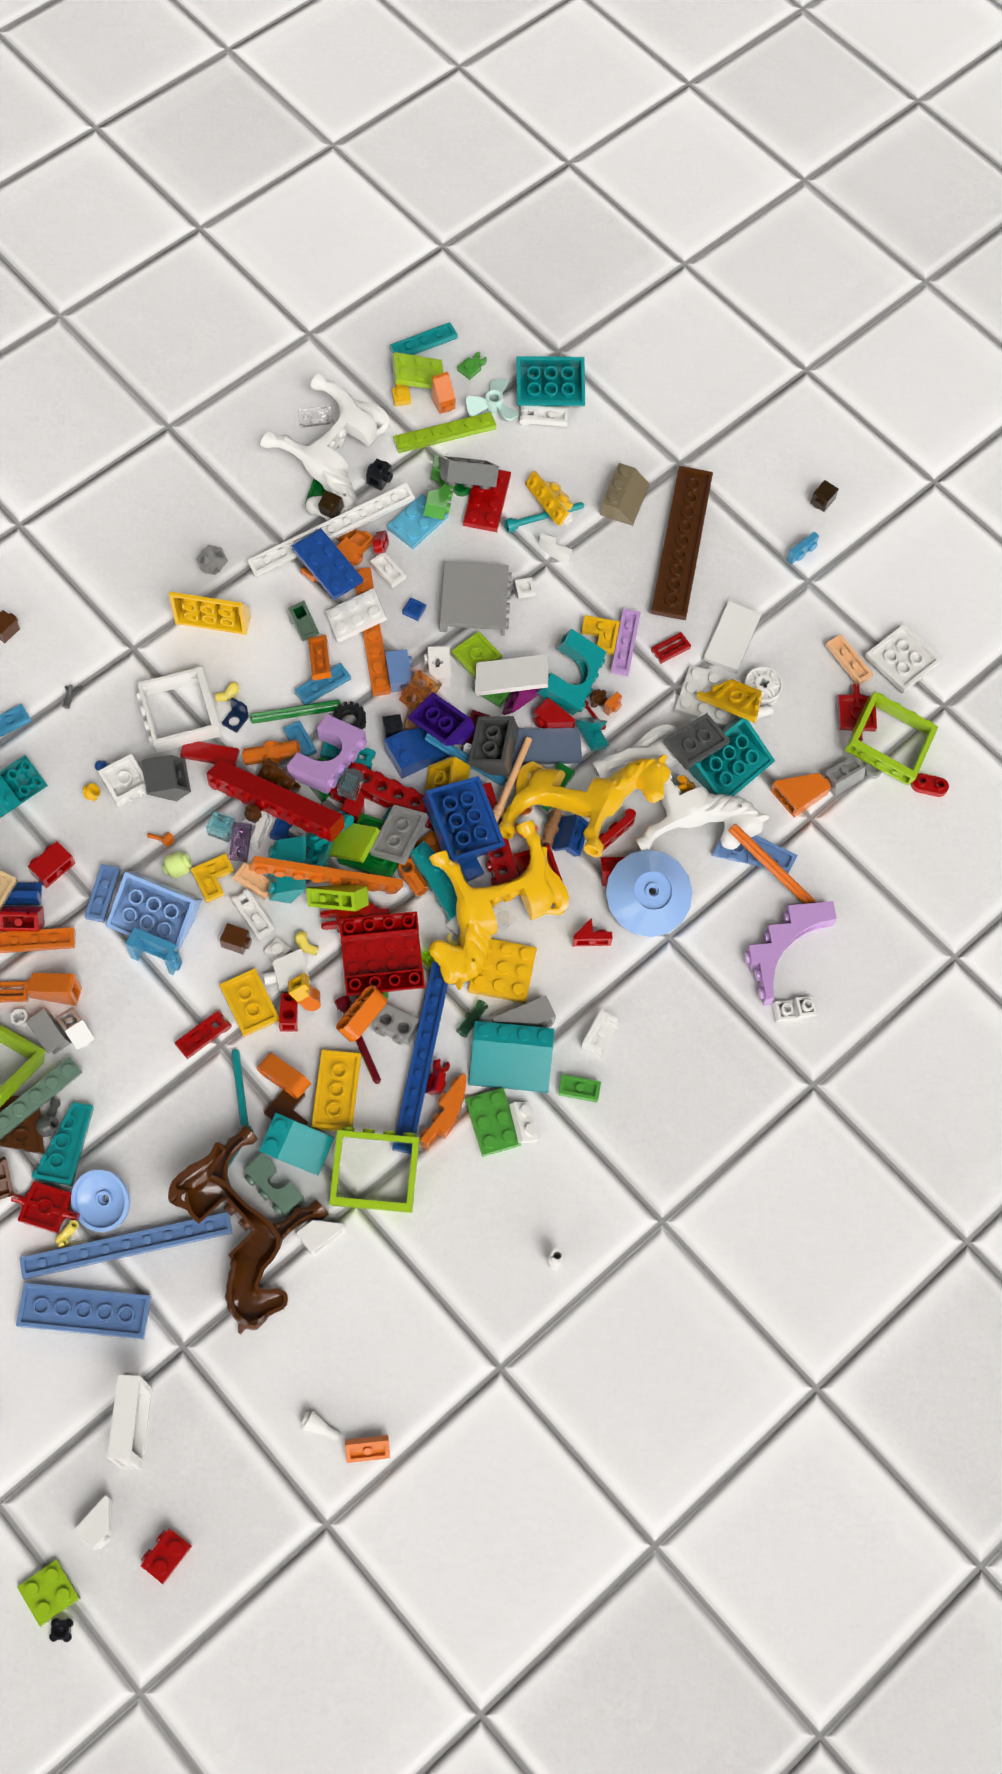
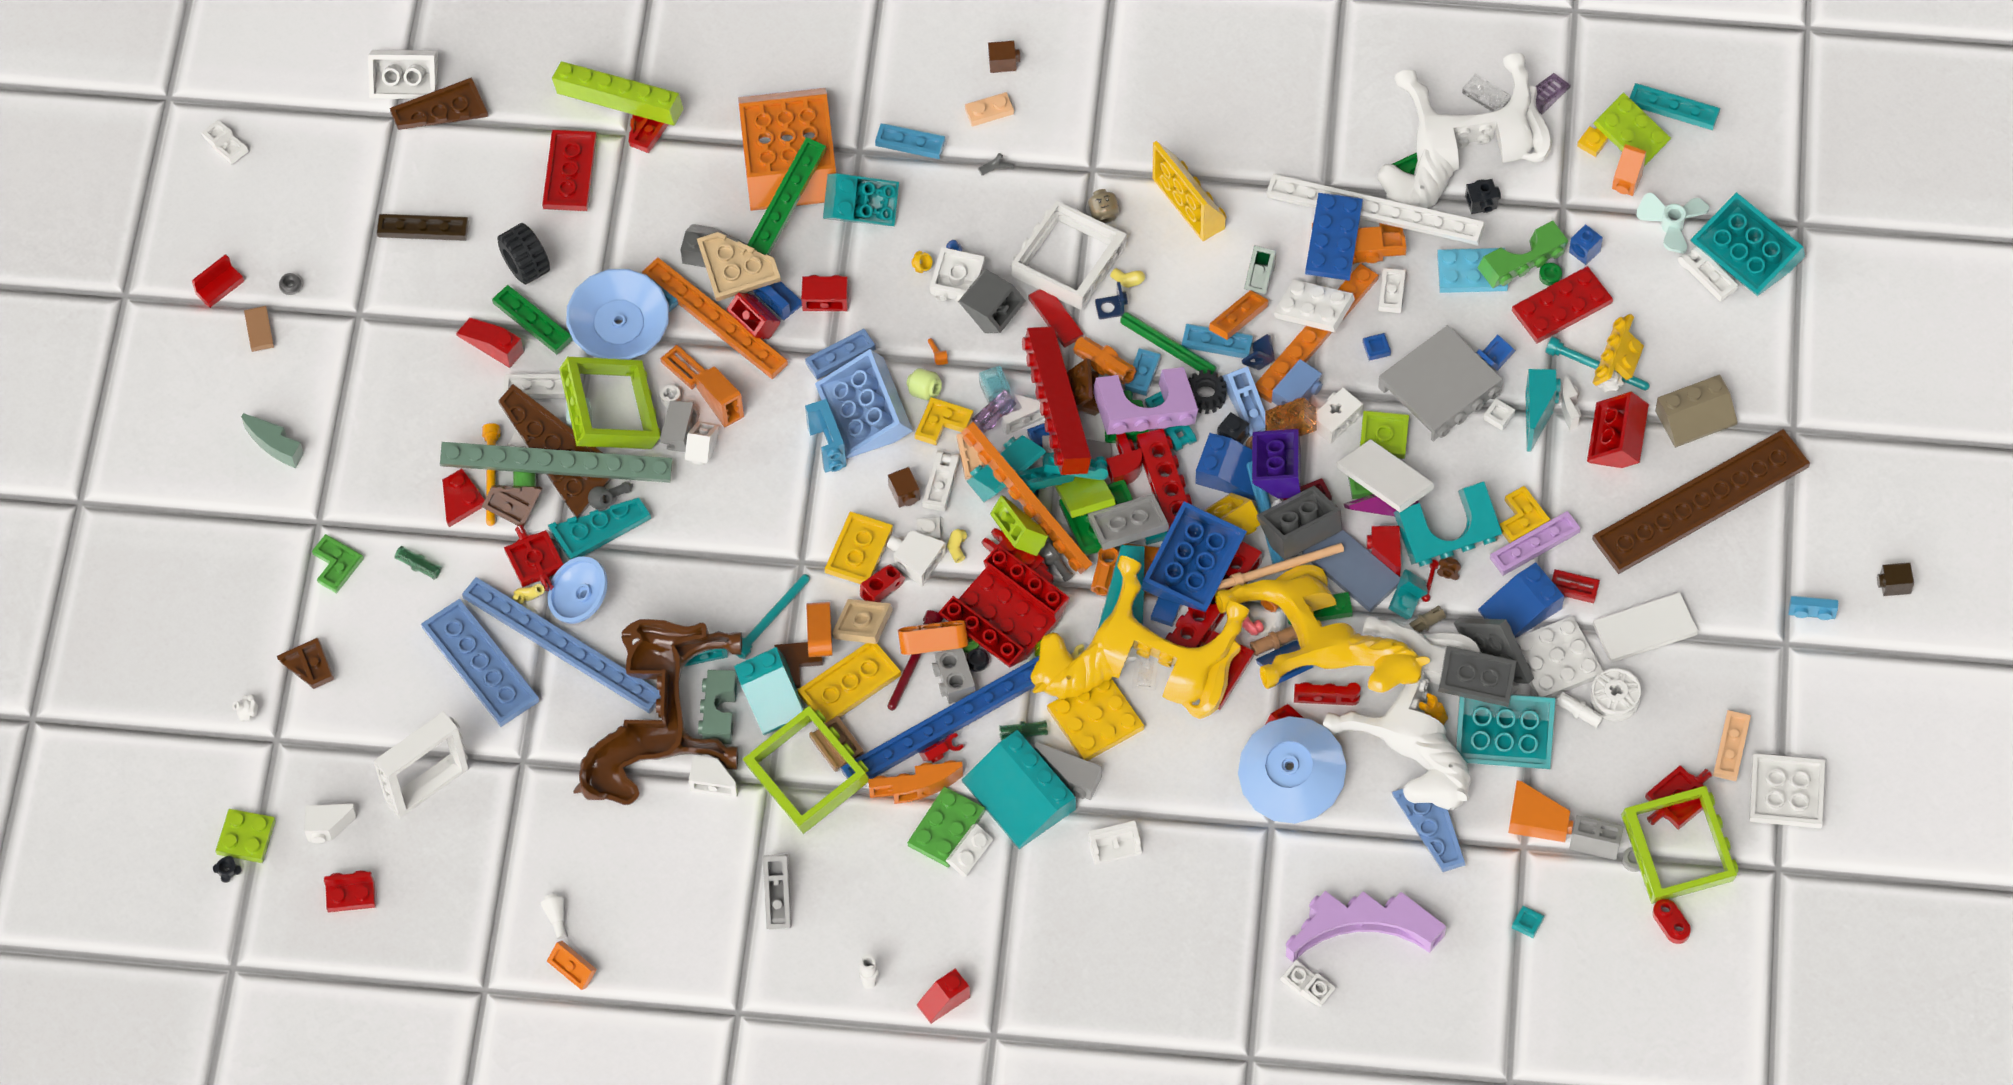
camera: 55 degrees right, 5 degrees down
(29, 665) = (989, 109): none -> light nougat plate
(167, 662) = (1103, 206): none -> dark tan head
(202, 1035) = (794, 540): red plate -> none
(211, 560) = (1241, 147): light grey brick -> none
(252, 813) = (1026, 394): reddish brown plate -> none
(304, 993) = (907, 580): leg -> none
(304, 1045) = (862, 621): none -> tan plate
(330, 504) = (1395, 185): dark brown brick -> none
(347, 380) = (1543, 105): none -> clear purple slope
(350, 783) = (1135, 443): clear light blue brick -> none
(356, 668) = (1262, 353): none -> dark blue bracket
(373, 1146) = (828, 751): none -> medium nougat plate
(374, 897) = (1052, 558): none -> dark grey bar
(378, 702) = (1245, 398): none -> light blue slope
(380, 542) = (1410, 259): red beam -> none
(397, 1001) = (977, 660): none -> black plate
(439, 1265) = (776, 891): none -> light grey slope
(444, 432) = (1594, 210): lime plate -> none
(465, 449) = (1585, 244): none -> blue brick
(468, 472) = (1560, 261): slope -> none
(471, 367) = (1693, 168): bright green plate -> none
(485, 553) = (1496, 352): none -> blue bracket
(543, 562) = (1540, 396): none -> teal slope
(579, 1088) = (1046, 868): bright green plate -> none
(587, 937) = (1197, 754): red slope -> none
(597, 541) = (1618, 431): none -> red slope
(611, 1228) = (944, 996): none -> slope
(613, 704) = (1456, 585): orange plate -> none
(619, 738) = (1428, 619): none -> dark tan axle
(658, 682) = (1524, 600): none -> blue slope
(675, 712) = (1496, 639): none -> dark grey plate
(734, 698) = (1567, 677): yellow wing -> none
(770, 864) = (1426, 844): orange axle -> none
(862, 857) = (1528, 921): none -> teal tile

